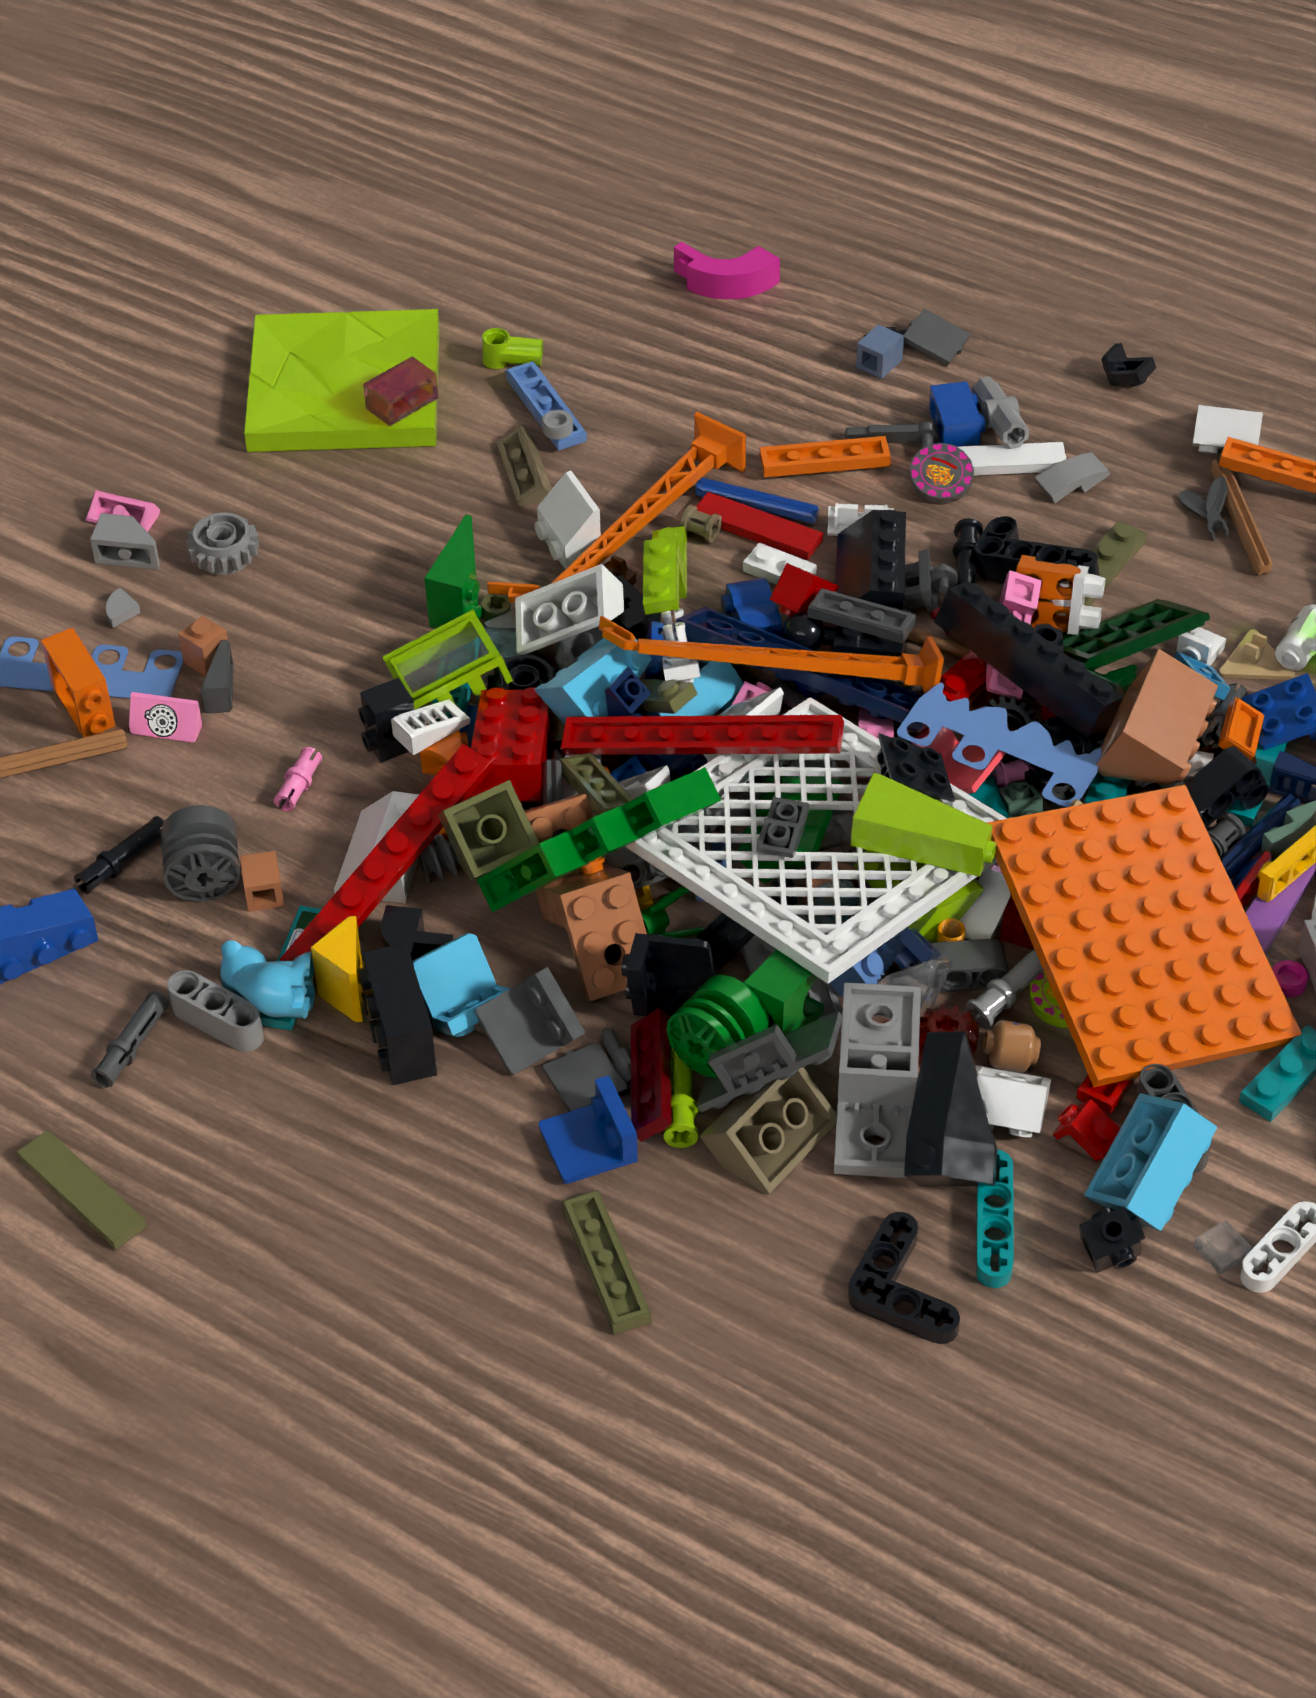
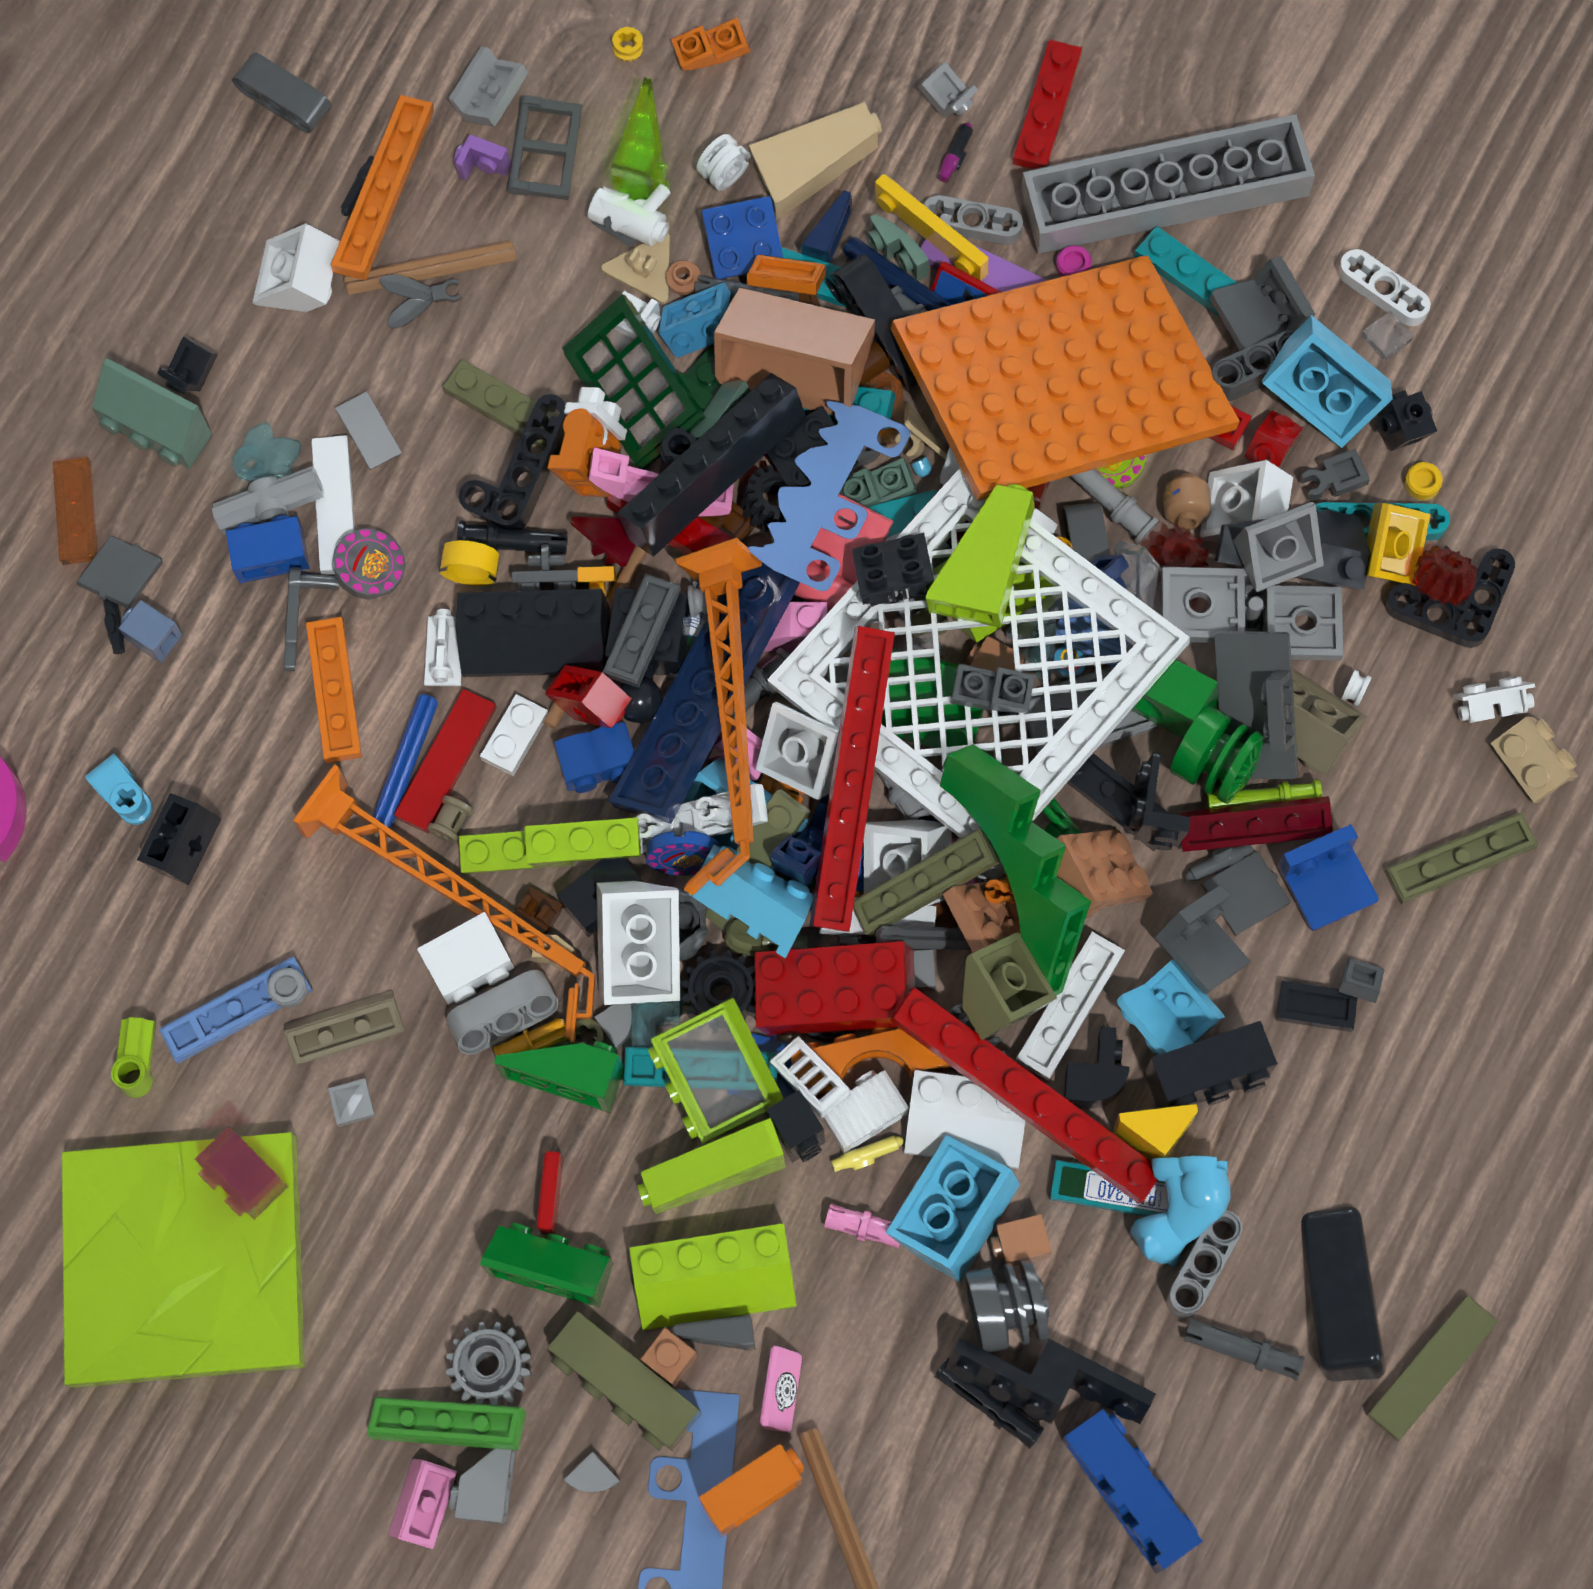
camera: 90 degrees left, 25 degrees up
(125, 887) = (1049, 1383): none -> black bracket
(164, 1123) = (1342, 1295): none -> black piece
(178, 514) = (446, 1423): none -> bright green tile
(220, 598) = (624, 1381): none -> olive brick
(271, 678) = (713, 1277): none -> lime slope
(295, 569) = (548, 1264): none -> green slope
(301, 826) = (953, 1207): none -> medium azure slope
(358, 663) = (713, 1167): none -> lime slope
(360, 580) = (550, 1192): none -> red tile
(362, 782) = (865, 1155): none -> light yellow piece
(397, 770) = (866, 1111): none -> white brick
(459, 472) = (352, 1102): none -> light grey tile
(459, 1125) = (1316, 1006): none -> black tile
(480, 1157) = (1361, 980): none -> dark grey tile
(492, 568) = (536, 1039): none -> light orange axle
(495, 934) = (1067, 1012): none -> white plate
(522, 549) = (502, 1012): none -> light grey beam
(691, 364) = (179, 839): none -> black brick
(713, 1335) = (1535, 758): none -> tan bracket
(740, 339) = (118, 788): none -> medium azure piece
(789, 1315) = (1509, 696): none -> white hinge
(798, 1177) = (1356, 688): none -> white bush
(923, 1257) = (1445, 575): none -> clear red gear
(926, 605) = (597, 576): none -> light orange tile
(935, 1067) = (1281, 547): none -> light grey slope
(939, 527) = (469, 563): none -> yellow piece
(959, 1208) = (1395, 542): none -> yellow slope
(994, 313) = (75, 510): none -> clear orange tile
(1045, 1265) = (1423, 481): none -> yellow tile
(1046, 417) = (270, 453): none -> clear light blue plate
(1047, 1184) = (1340, 473): none -> dark grey plate
(1077, 344) = (149, 415): none -> sand green slope
(1242, 1117) = (1262, 305): none -> dark grey bracket
(1247, 677) = (682, 286): none -> nougat plate

